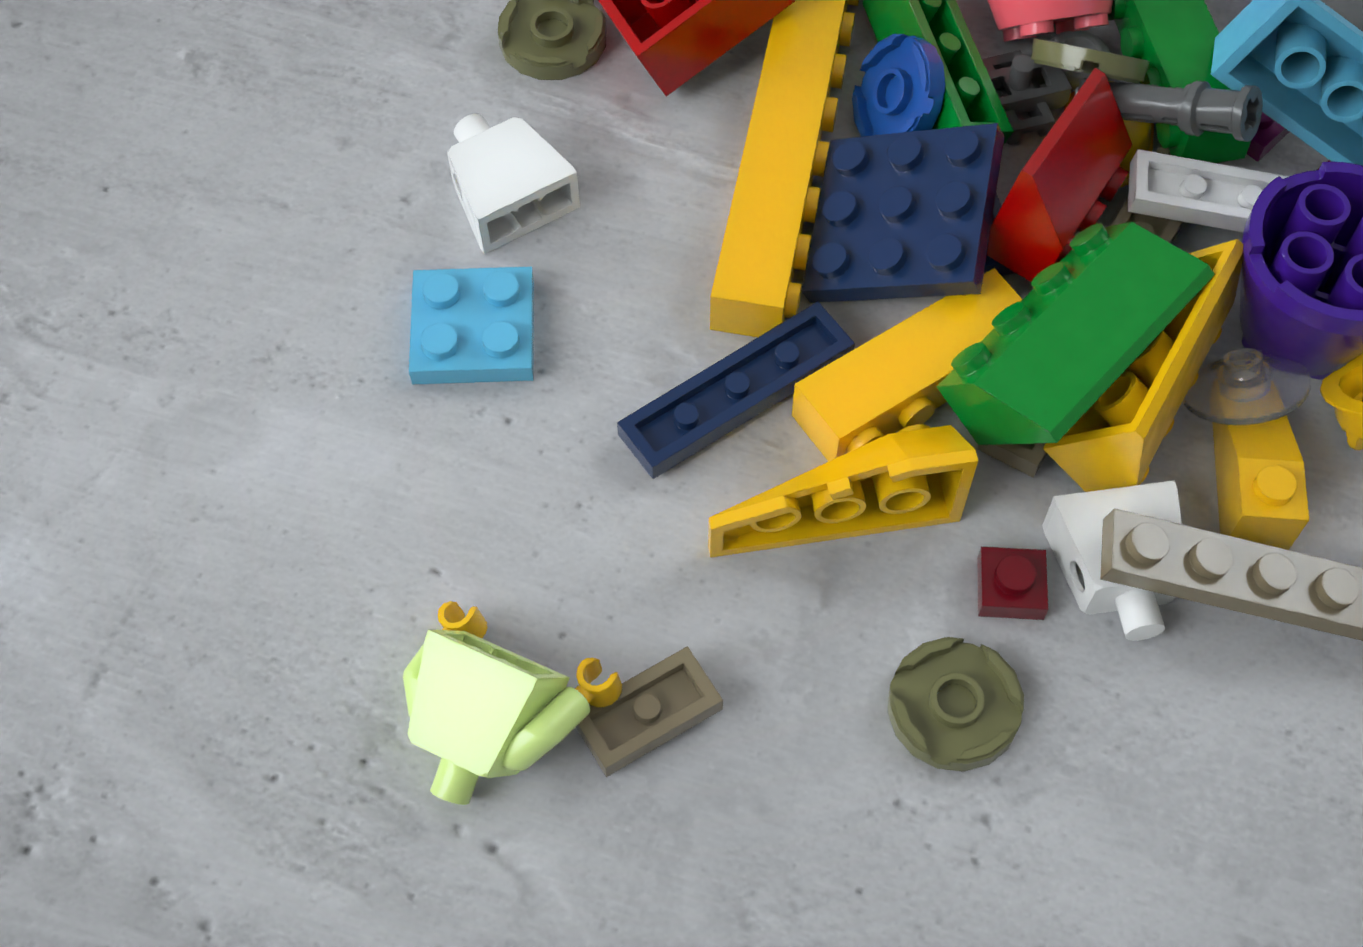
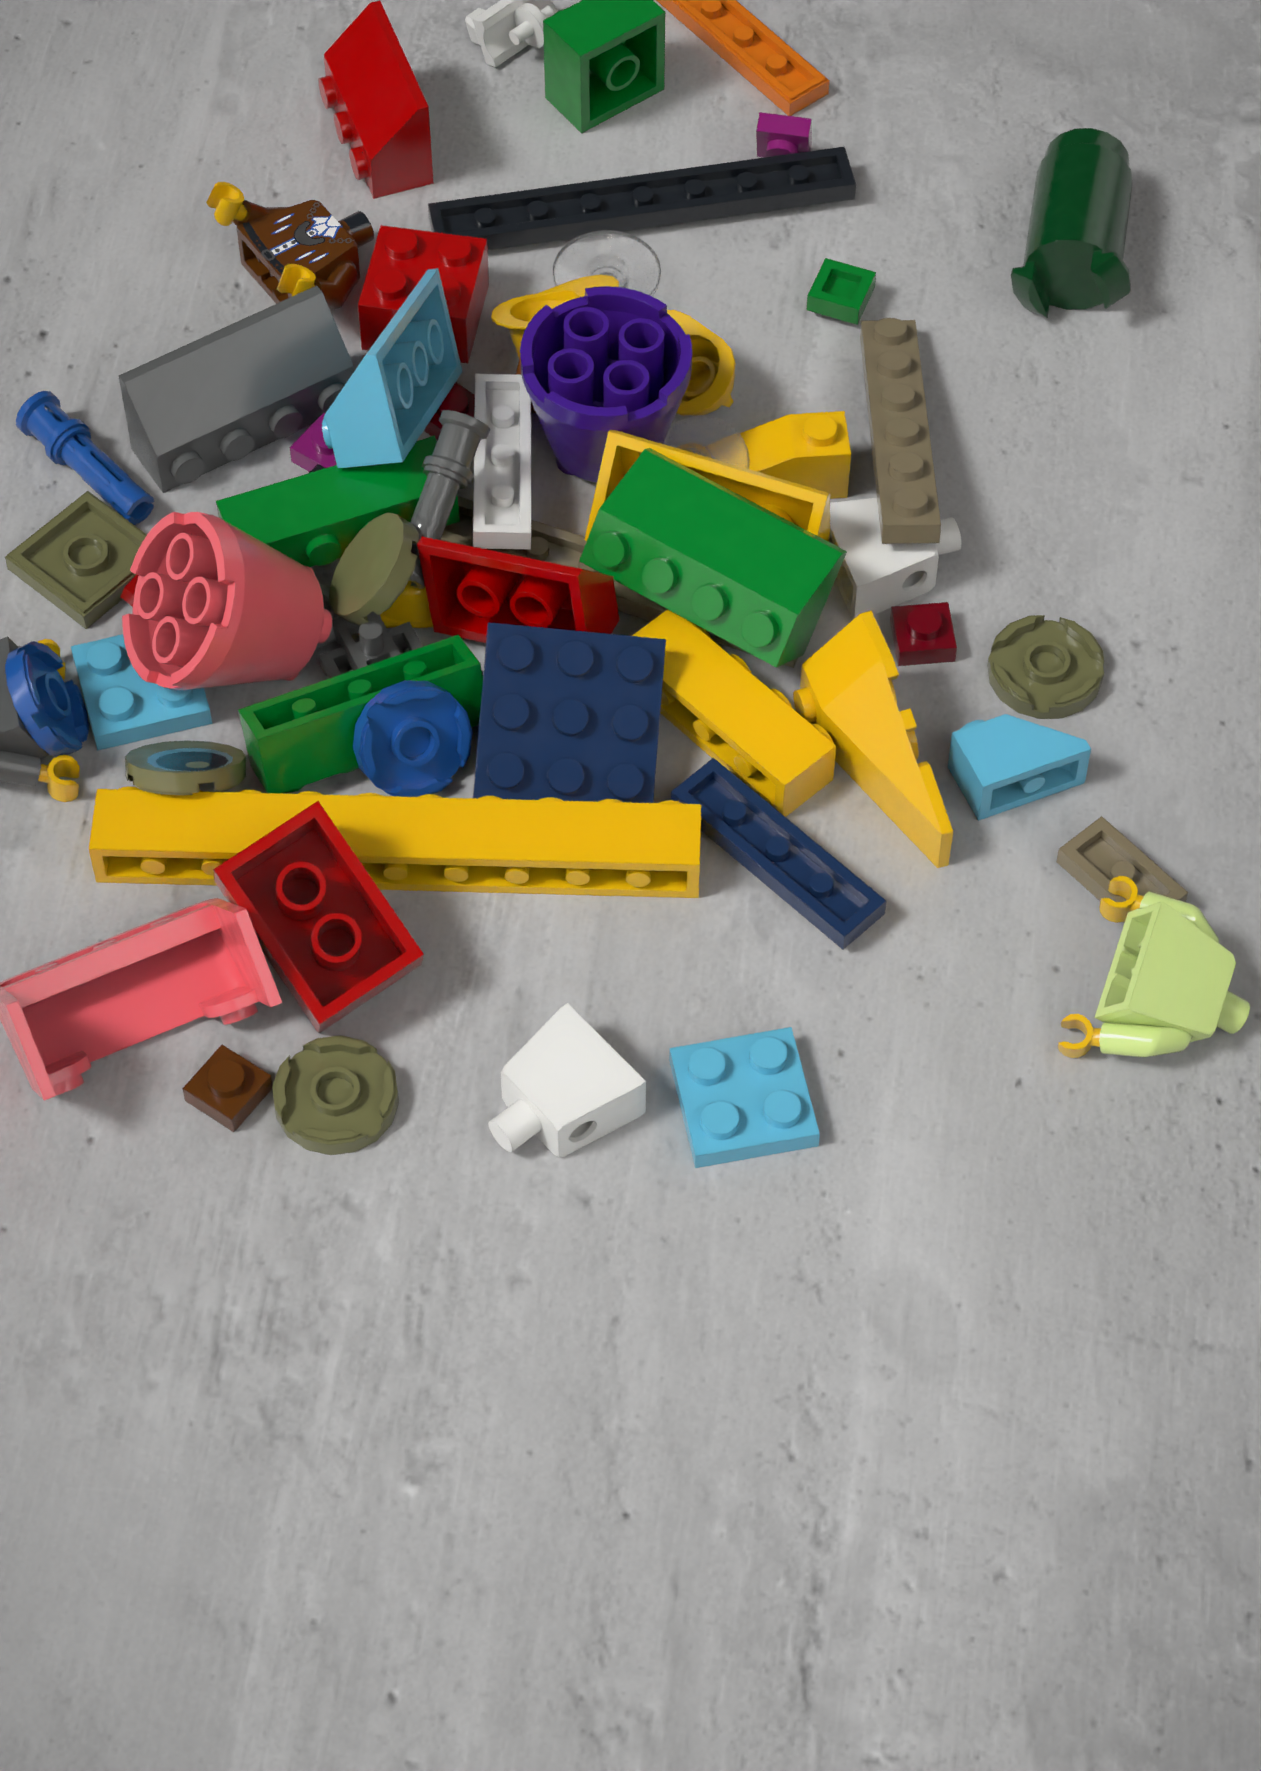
camera: 100 degrees left, 5 degrees down
(812, 621) = (1014, 763): none -> medium azure slope

